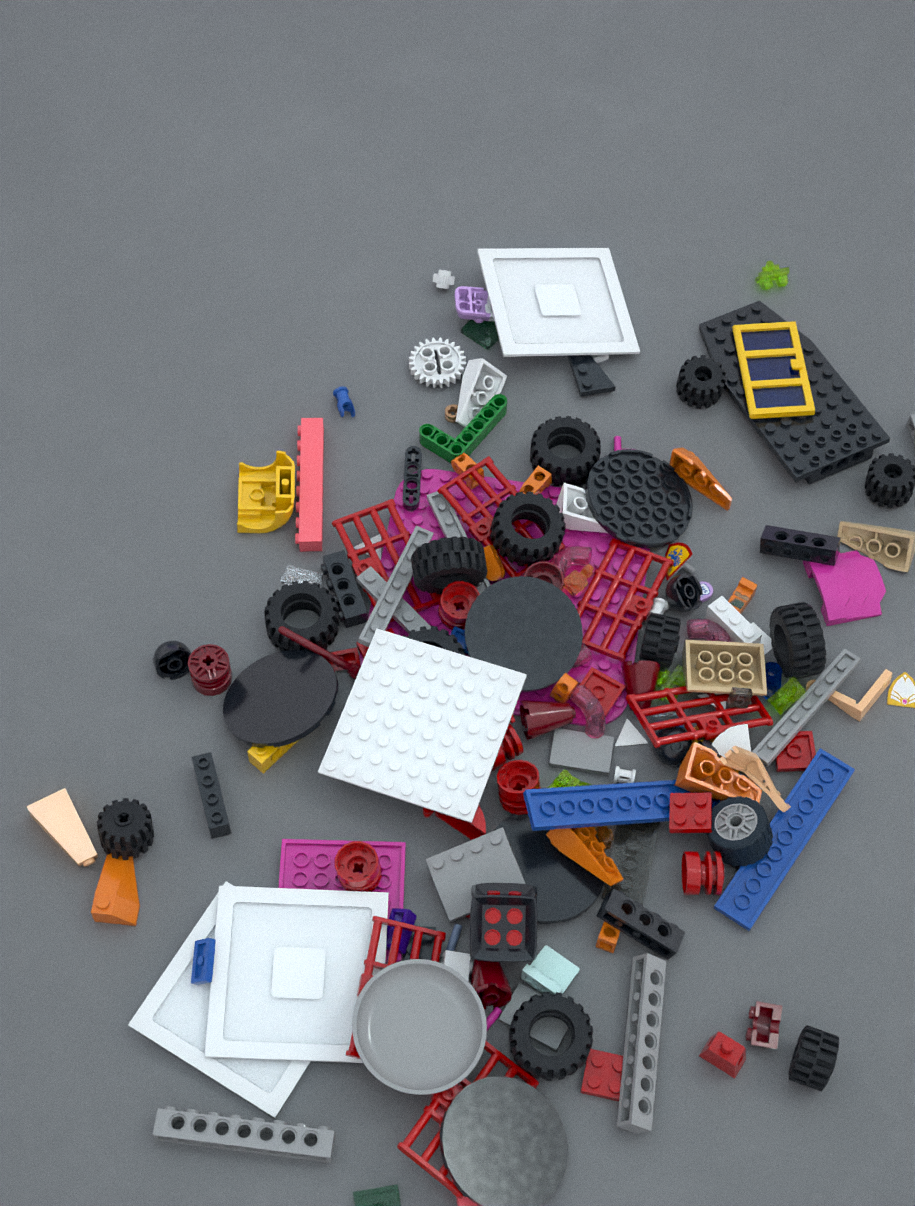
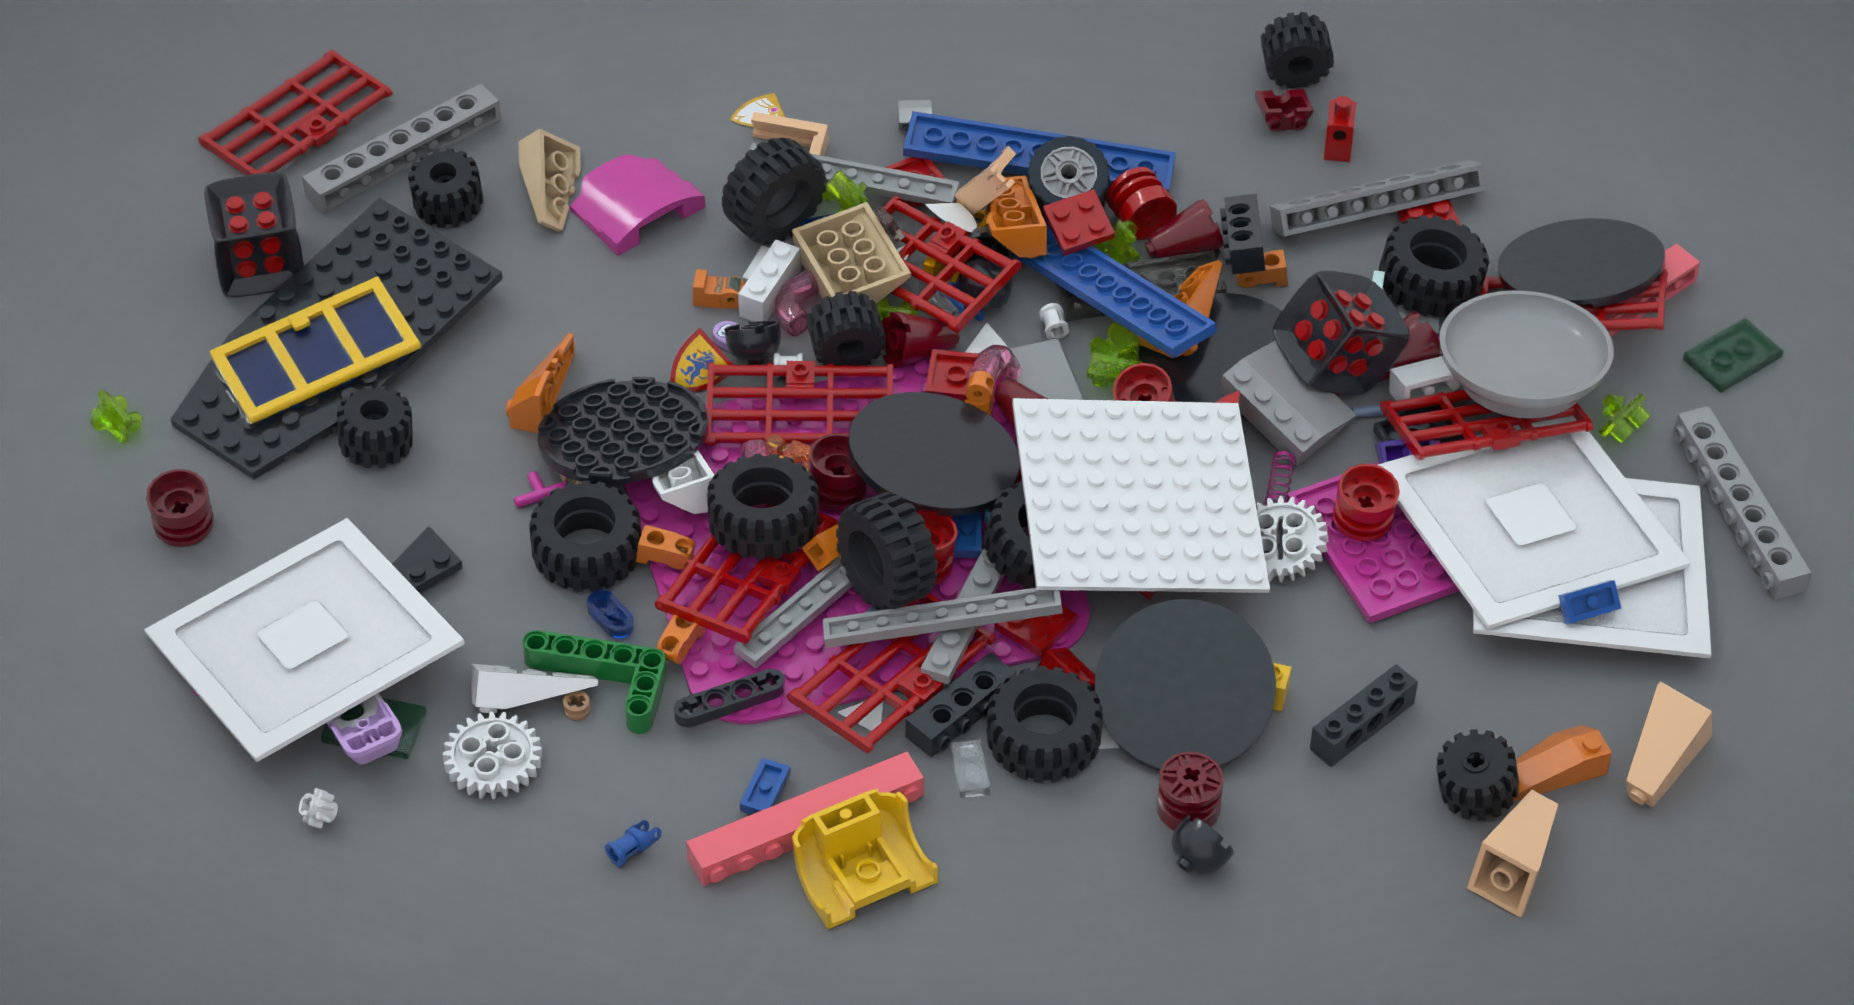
camera: 115 degrees left, 10 degrees down
(85, 959) = (1669, 742): none -> light nougat slope
(344, 474) = (765, 786): none -> blue plate
(352, 669) = (1081, 643): dark red piece -> none
(363, 1098) = (1615, 407): none -> clear neon green hips
(370, 812) = (1308, 538): none -> white gear
(402, 837) = (1282, 466): none -> dark pink piece
(506, 449) = (613, 615): none -> clear blue plate
(663, 893) = (1186, 233): none -> dark red cone
(674, 846) = (1123, 250): none -> clear neon green hips
(681, 278) = (180, 507): none -> dark red wheel
(800, 545) = (609, 263): black brick -> none
(860, 780) = (905, 111): none -> light grey piece
(881, 364) = (253, 233): none -> black piece

